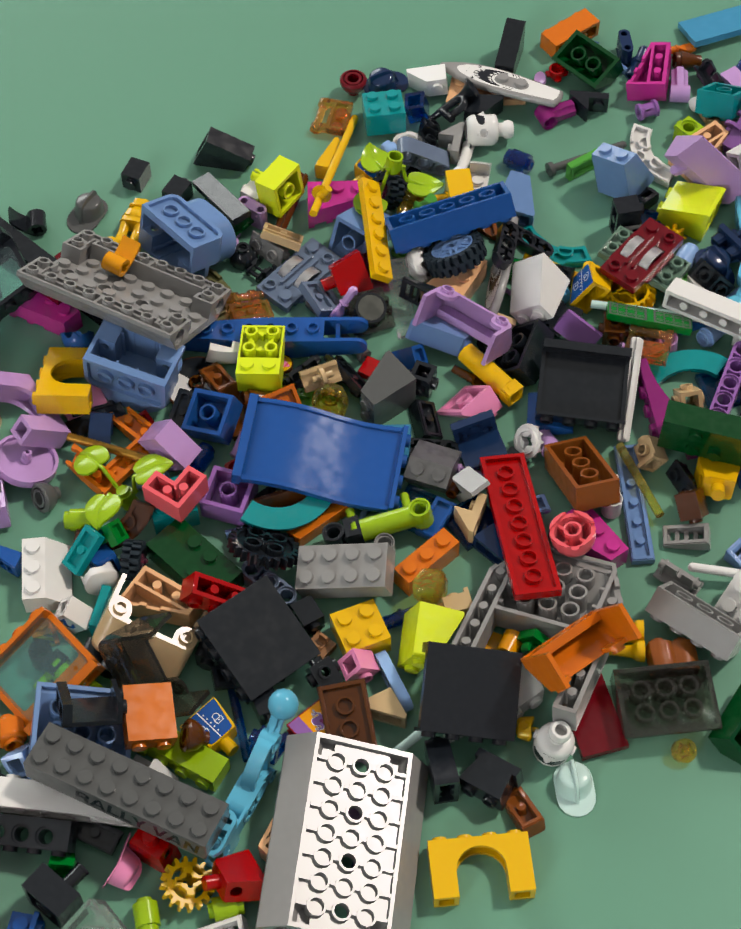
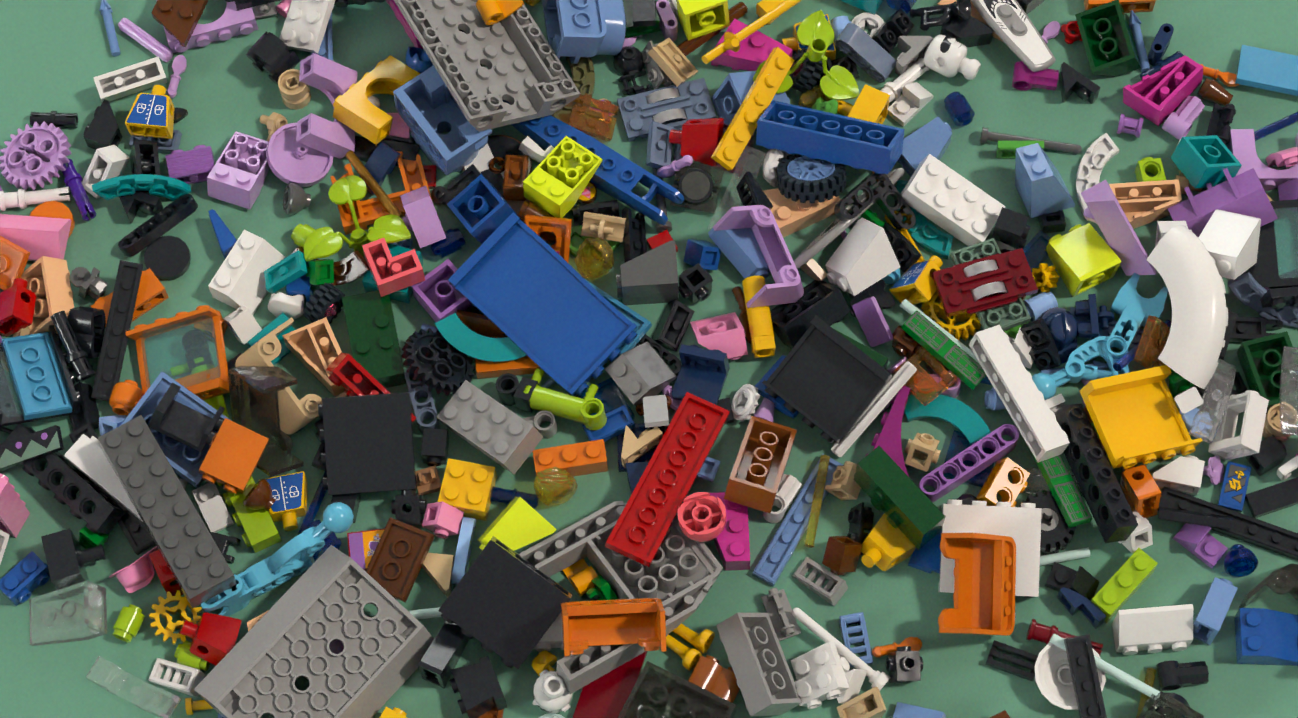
camera: 35 degrees right, 10 degrees up
(458, 601) = (565, 515): tan brick -> none
(568, 218) = (951, 201): none -> white brick

